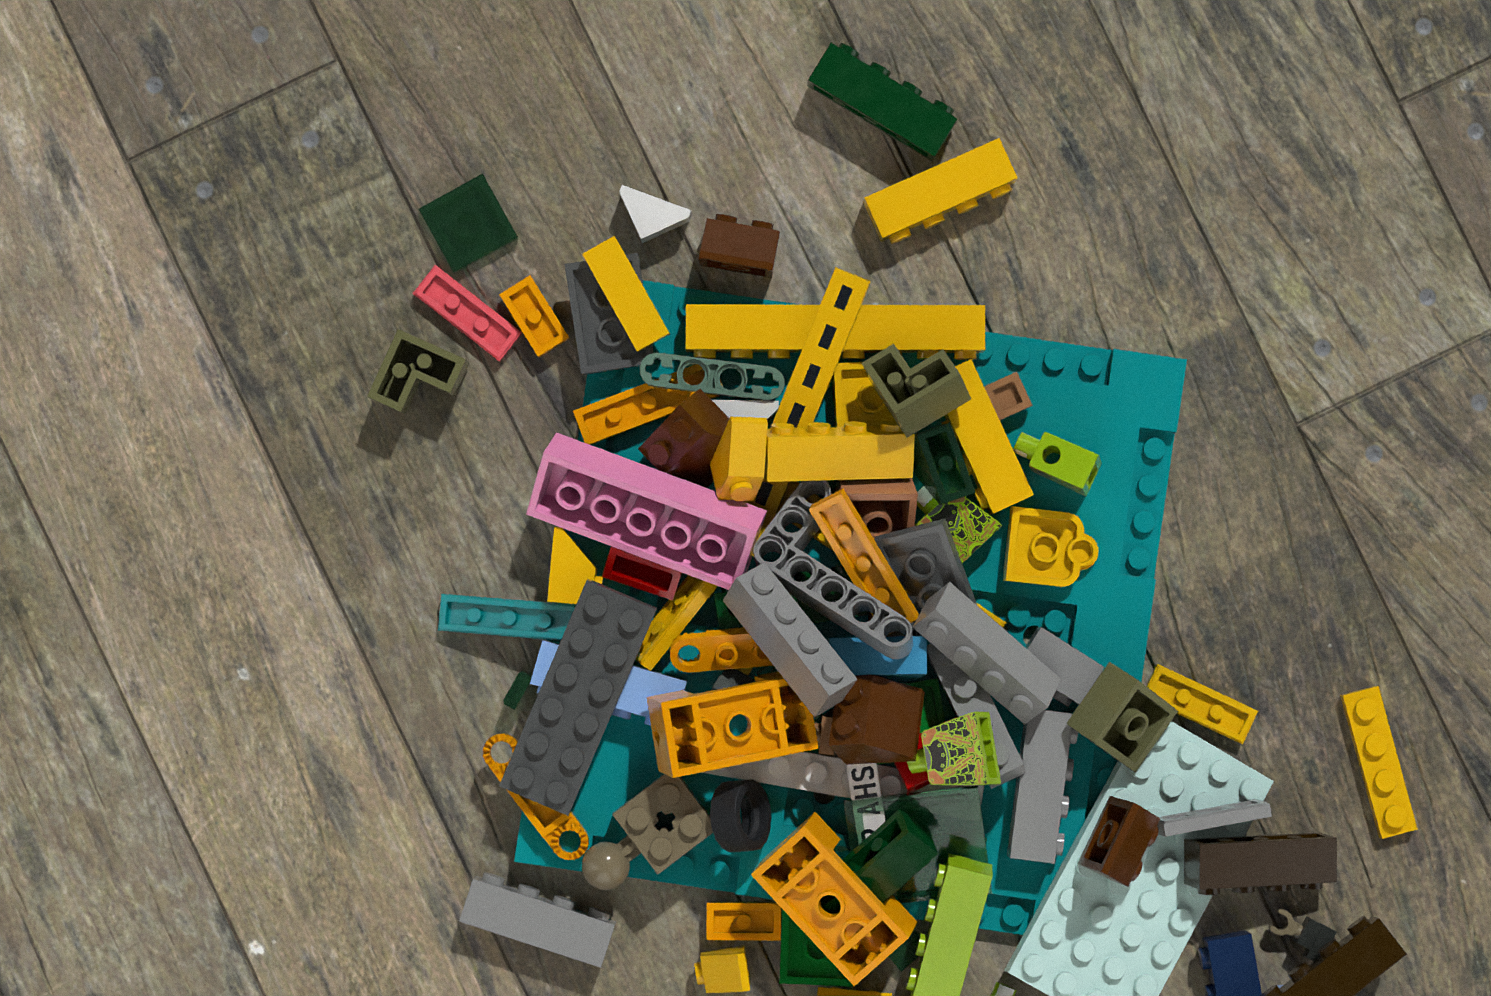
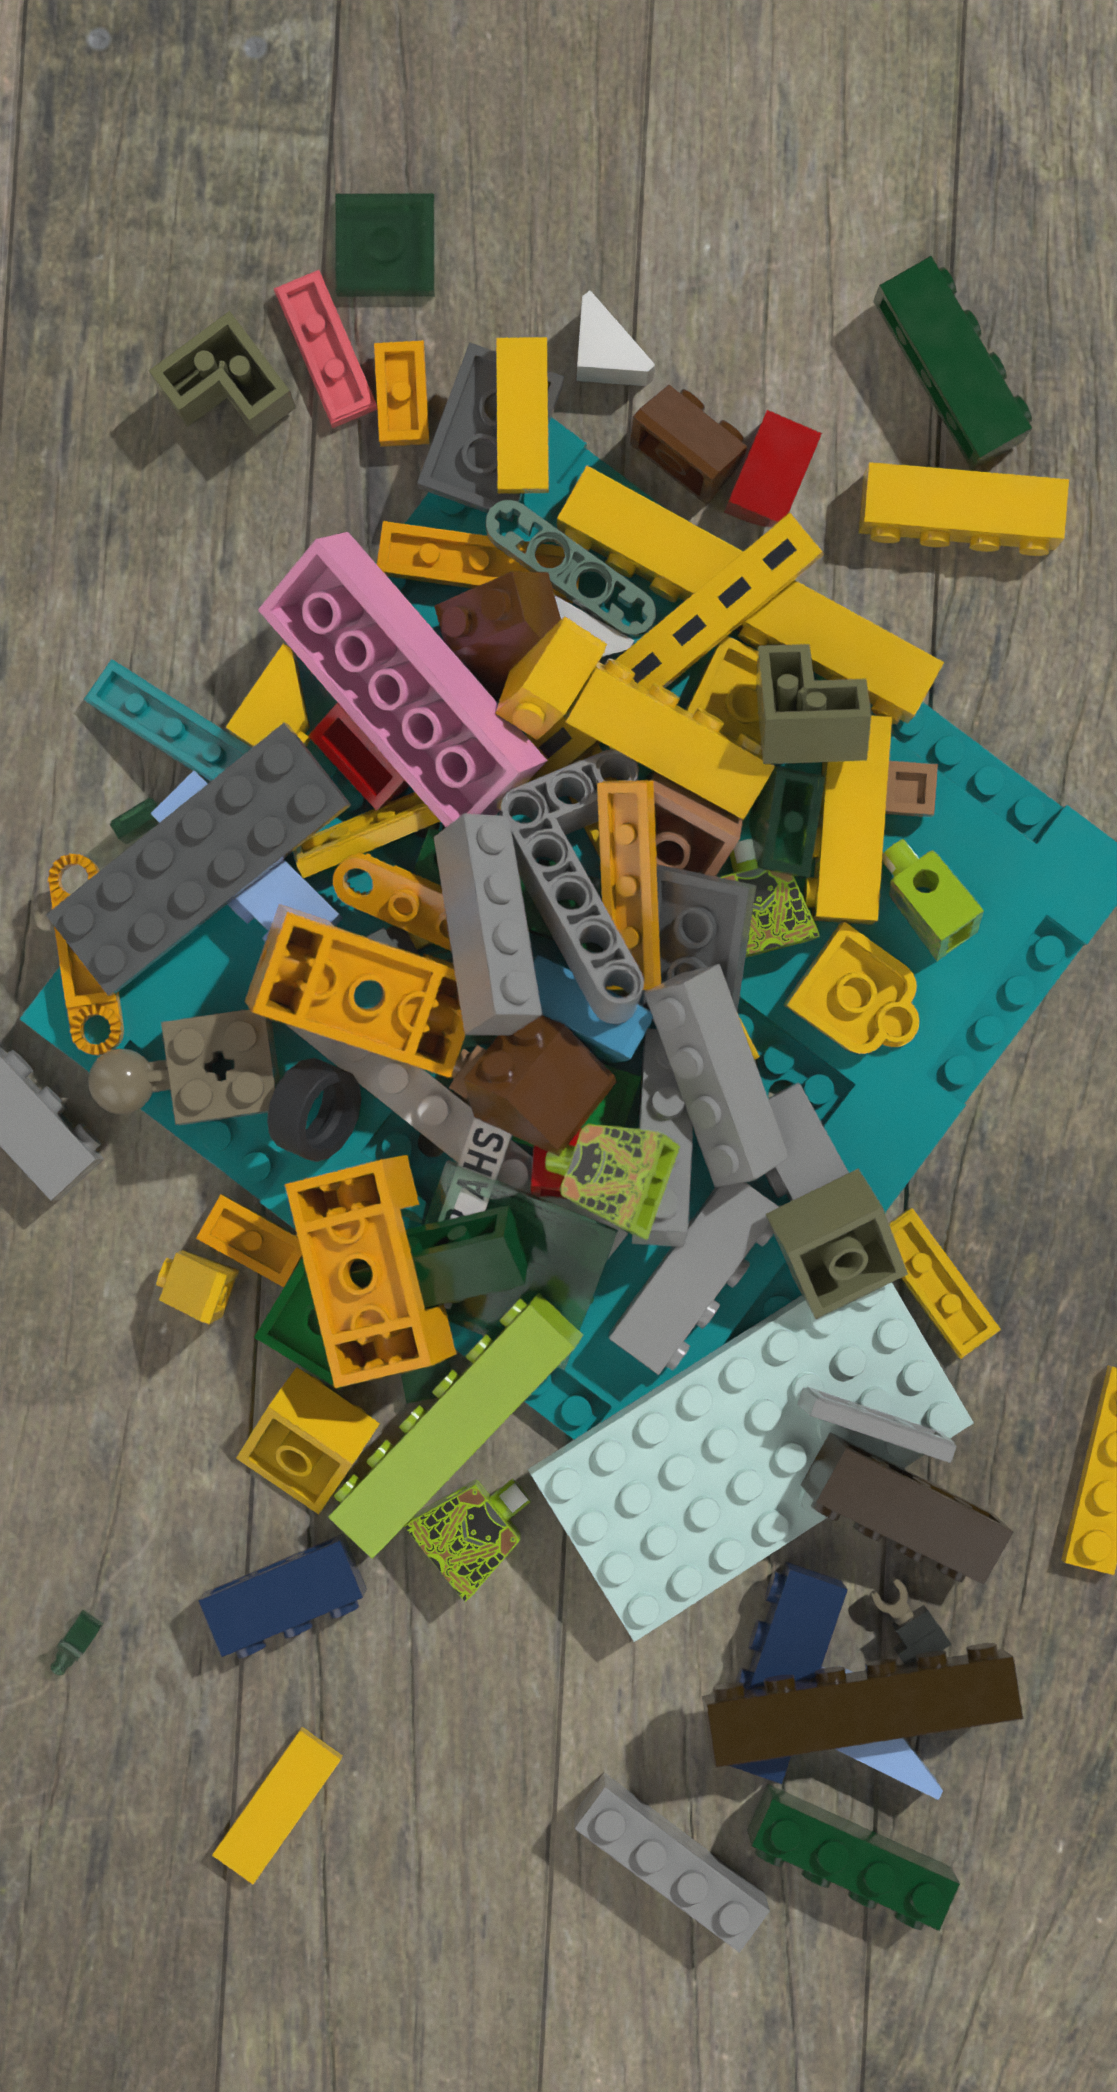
camera: 25 degrees right, 0 degrees up
(804, 235) = (773, 471): none -> red brick
(1120, 841) = (753, 1391): reddish brown slope -> none

